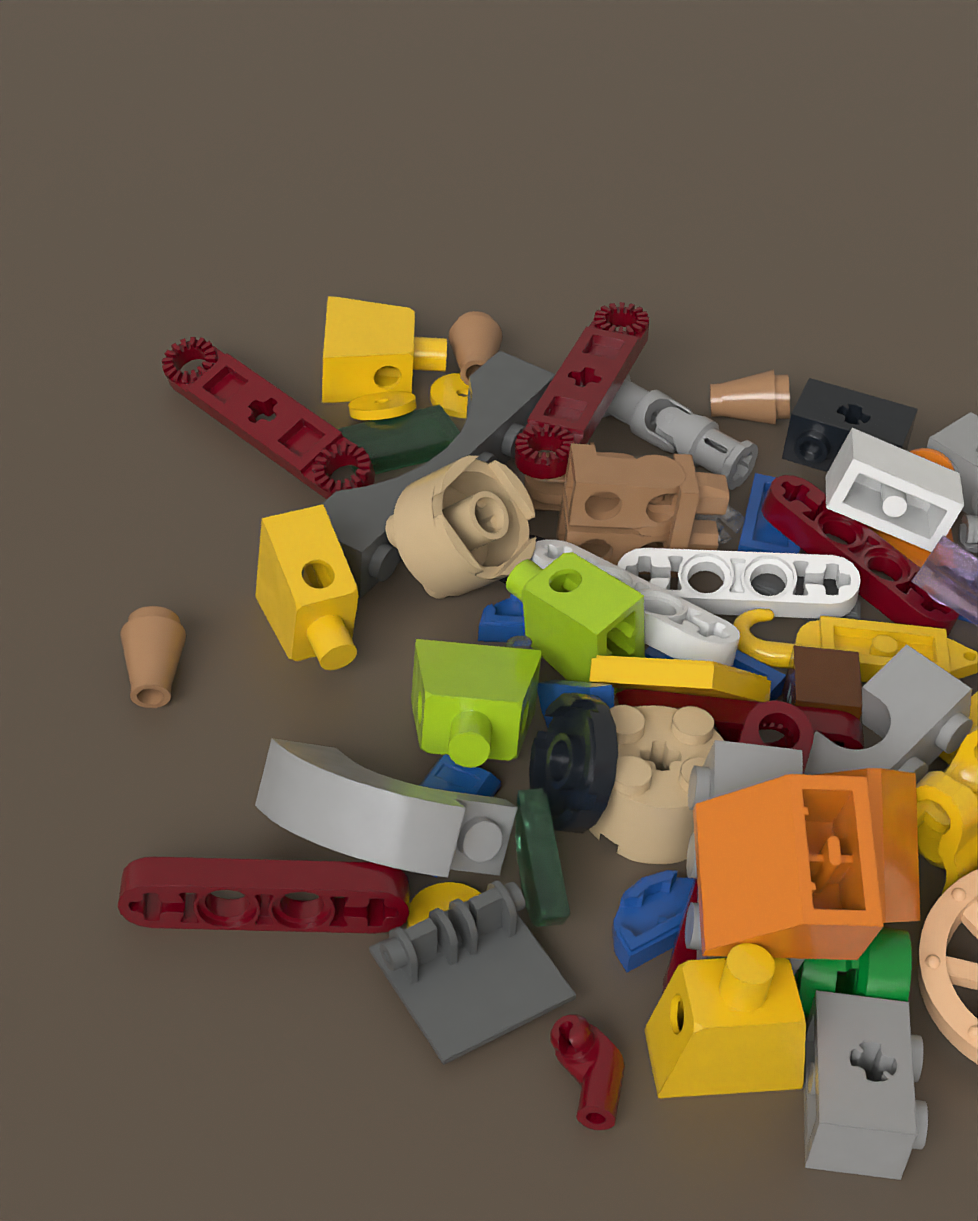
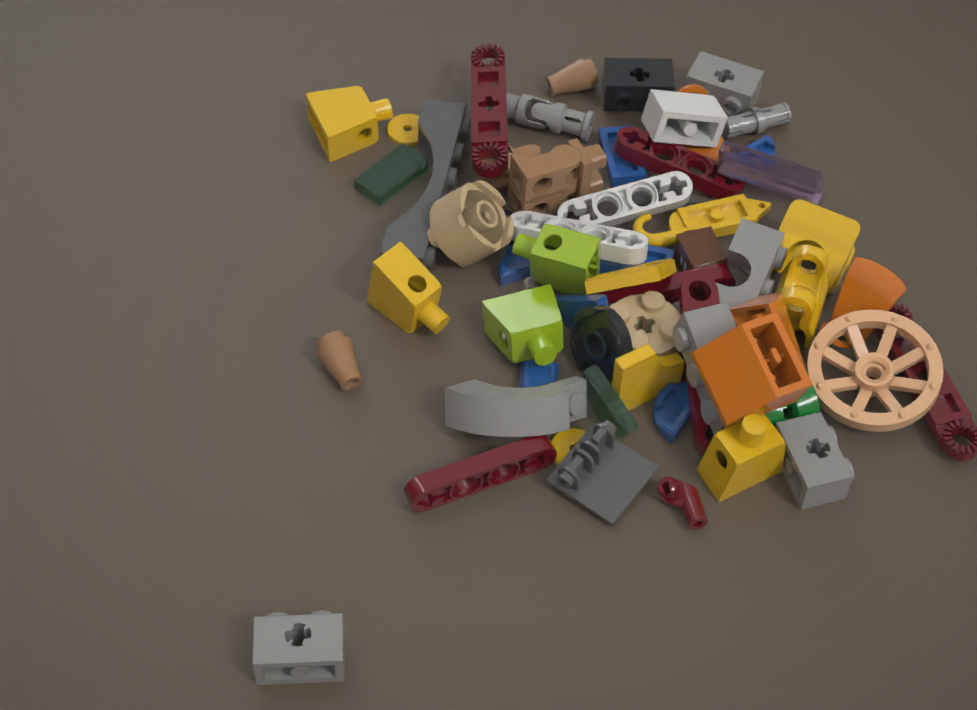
camera: 20 degrees left, 10 degrees up
(293, 439) = (335, 193): dark red piece -> none
(382, 405) = (370, 154): yellow wheel -> none
(474, 341) = (403, 96): medium nougat cone -> none
(612, 836) = (643, 374): none -> yellow tile

